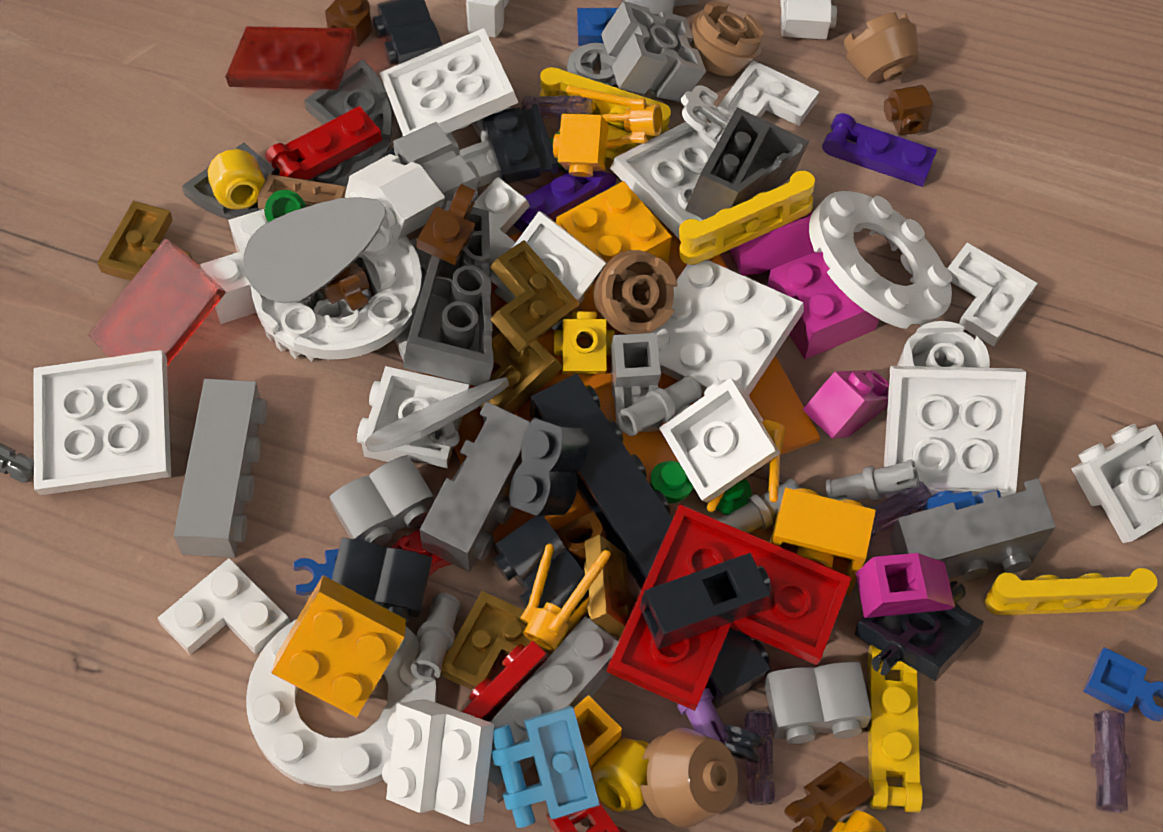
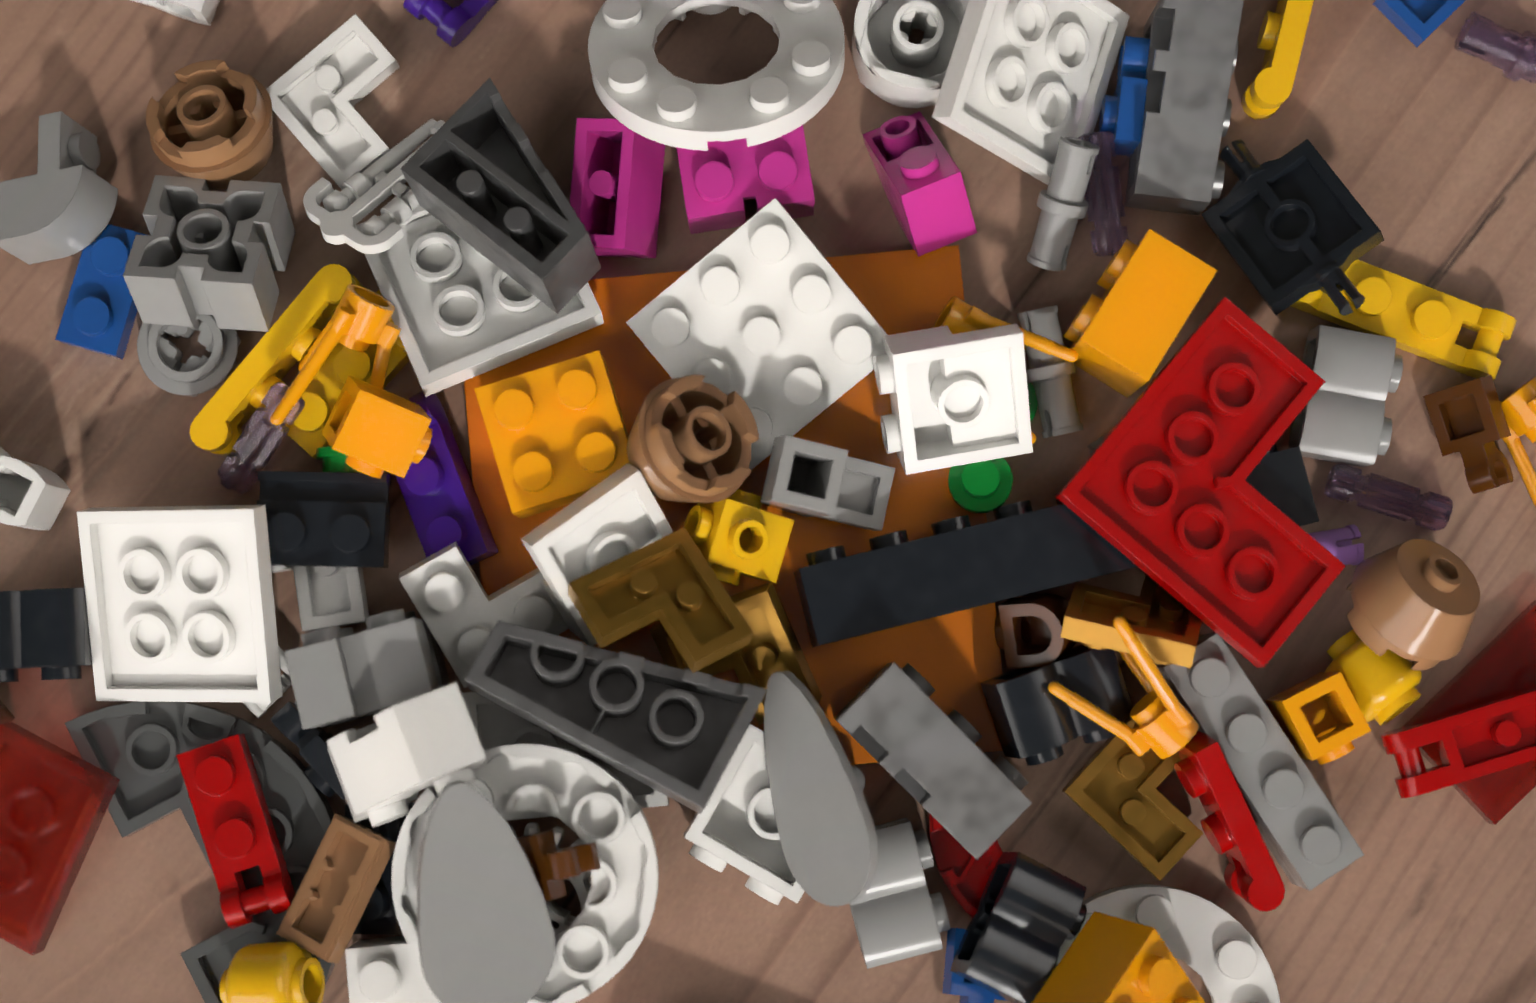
camera: 65 degrees left, 25 degrees up
(281, 203) = (370, 926): green plate -> none
(435, 637) = (1116, 873): light grey pin -> none
(439, 760) = (1308, 920): white plate -> none
(449, 231) = (532, 698): reddish brown plate -> none
(550, 458) = (946, 655): black brick -> none
(560, 764) = (1364, 769): dark azure plate -> none
(659, 405) = (877, 462): light grey pin -> none
(705, 600) = (1226, 509): black brick -> none
(743, 743) = (1385, 519): black bush -> none
(747, 220) = (610, 199): yellow plate -> none
(903, 585) = (1256, 230): dark pink slope -> none

